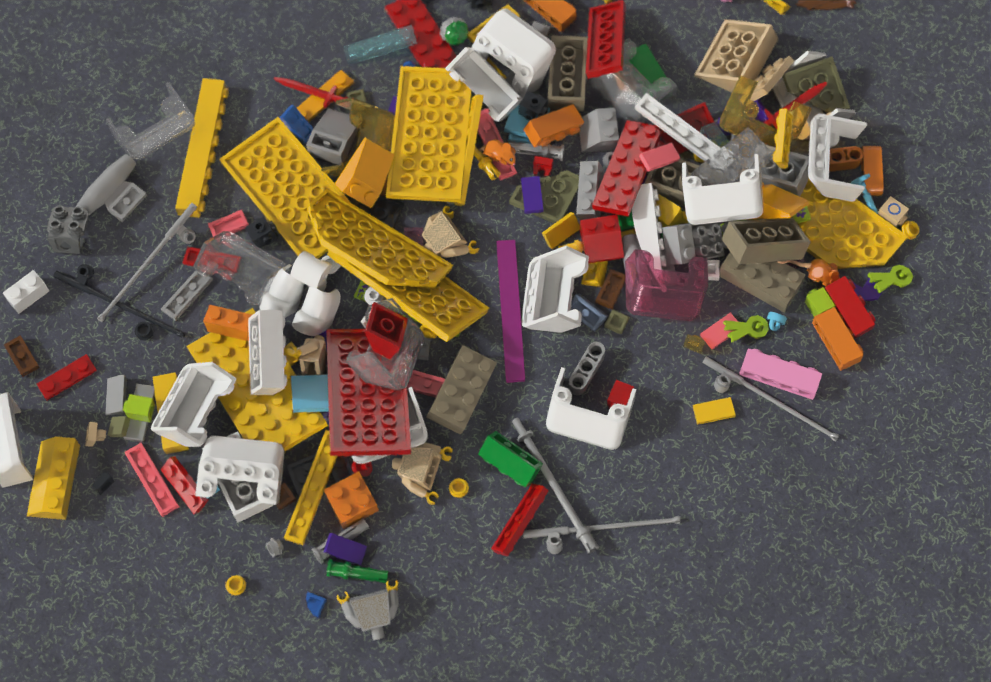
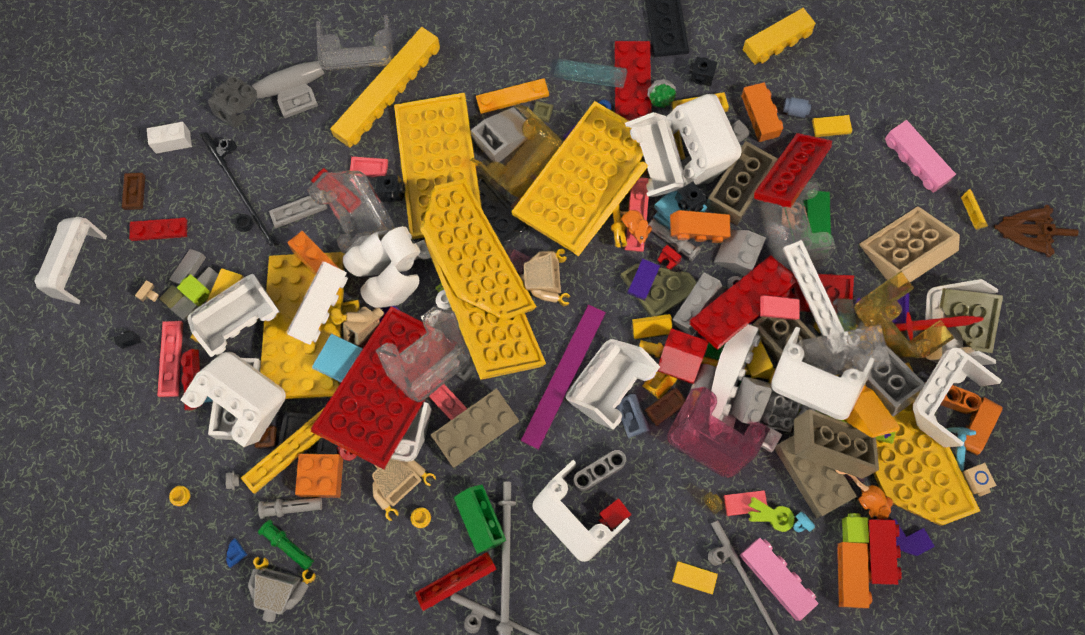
camera: 30 degrees right, 5 degrees up
(54, 478) = (93, 314): yellow slope -> none
(179, 229) = (321, 148): light grey piece -> none
(297, 124) = (476, 106): blue plate -> none
(328, 96) = (518, 97): red sword -> none
(345, 549) = (286, 519): dark purple tile -> none
(366, 172) = (504, 182): light orange slope -> none
(385, 330) = (432, 338): red slope -> none
(616, 322) = (653, 440): olive tile -> none
(770, 77) = (931, 284): tan plate -> none
(783, 138) = (908, 353): yellow plate -> none
(898, 276) = (949, 544): lime piece -> none
(910, 229) = (986, 505): yellow plate -> none

